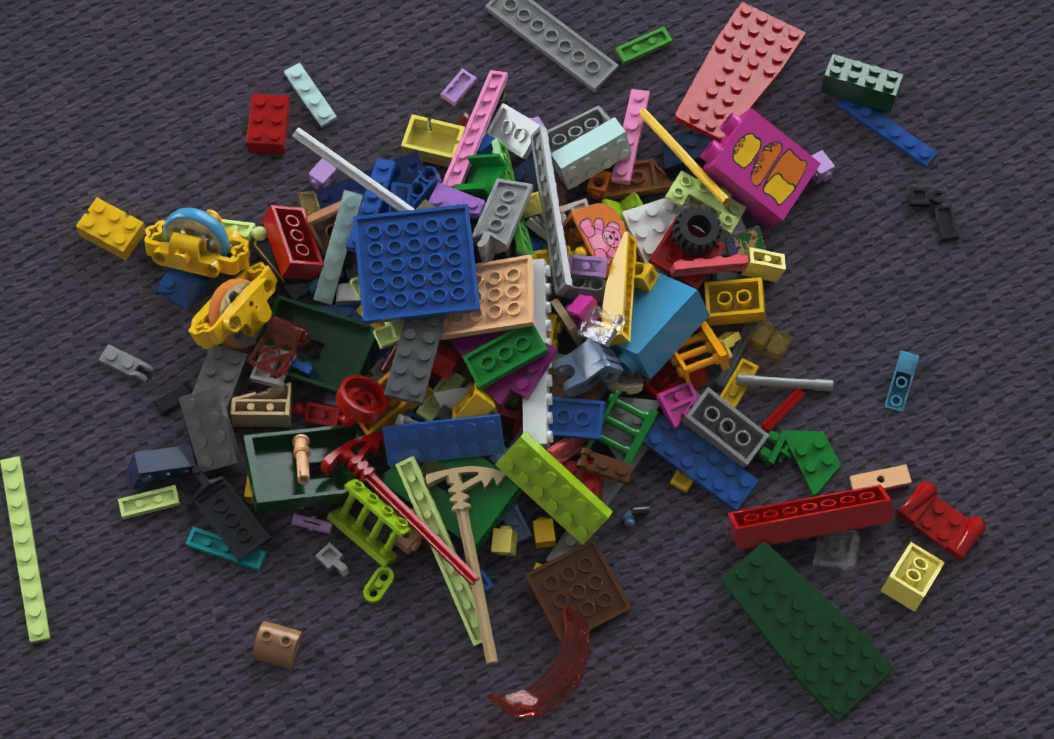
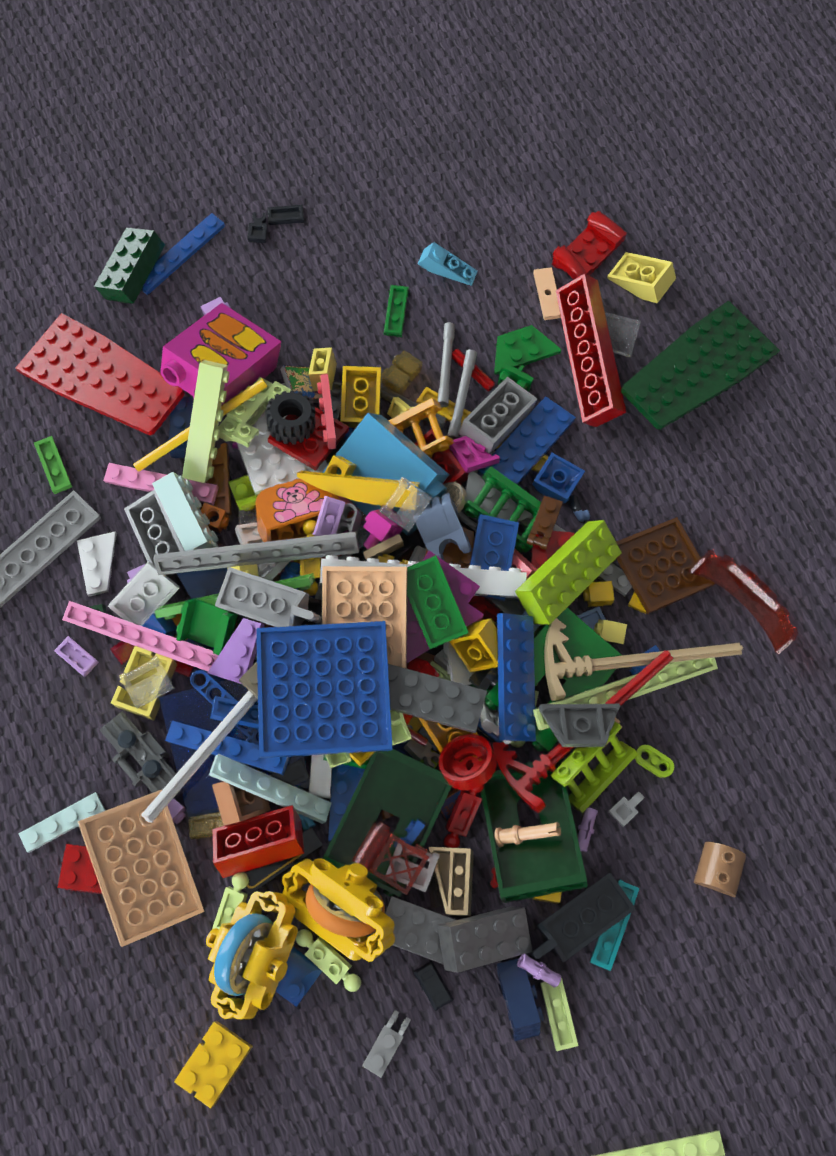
camera: 90 degrees left, 5 degrees up
(183, 477) = (539, 970): none -> lavender pin
(185, 318) = (328, 960): none -> yellowish green plate
(264, 155) = (140, 869): none -> light nougat plate
(376, 145) = (145, 750): none -> dark grey piece
(400, 495) = (580, 723): none -> dark grey wing
(426, 143) = (150, 687): none -> clear plate
(553, 92) = (96, 561): none -> white wing
(664, 491) = (558, 478): none -> blue slope
(681, 154) = (205, 421): none -> yellowish green brick
(782, 401) = (468, 366): none -> light grey piece
(844, 334) = (396, 310): none -> green tile

